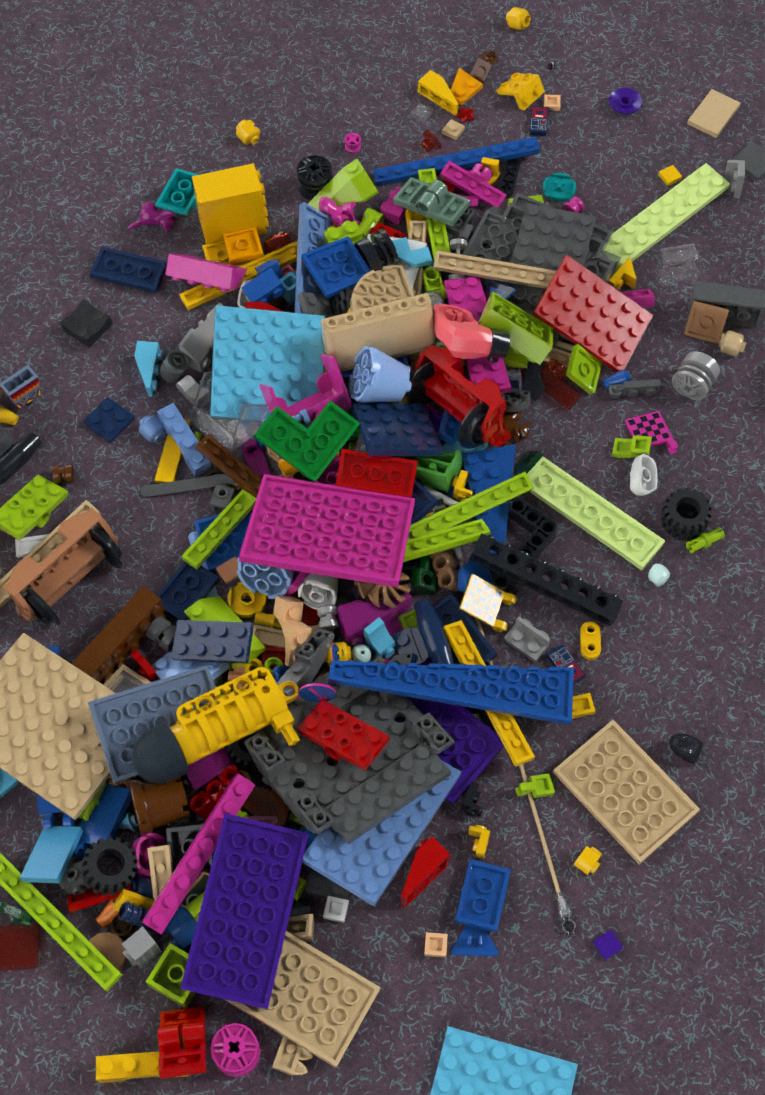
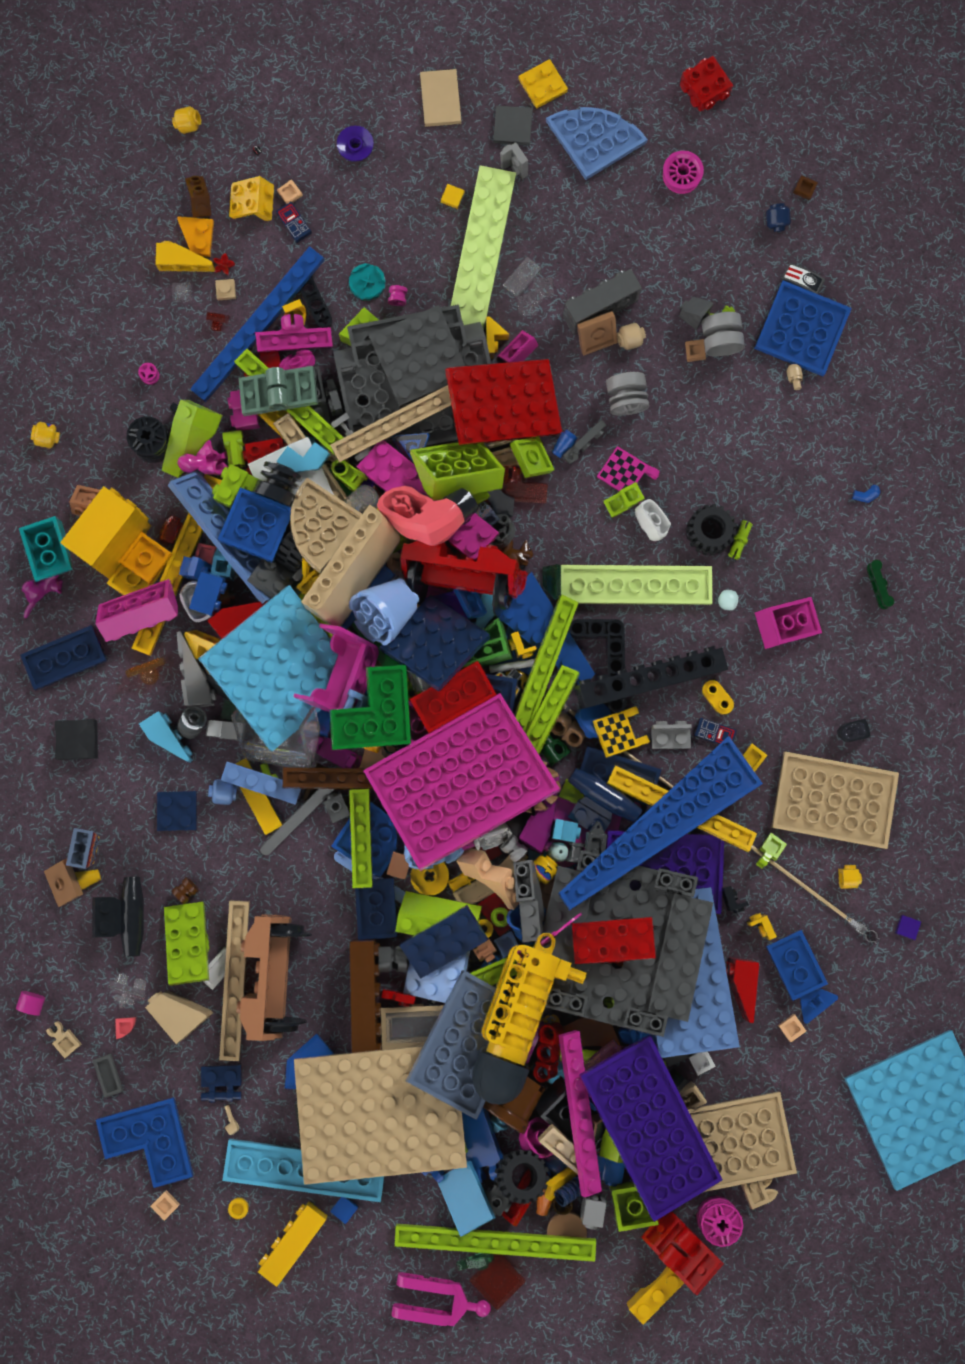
camera: 45 degrees left, 20 degrees up
(176, 315) = (147, 671): none -> clear orange tile
(696, 625) = (788, 622): none -> dark pink slope

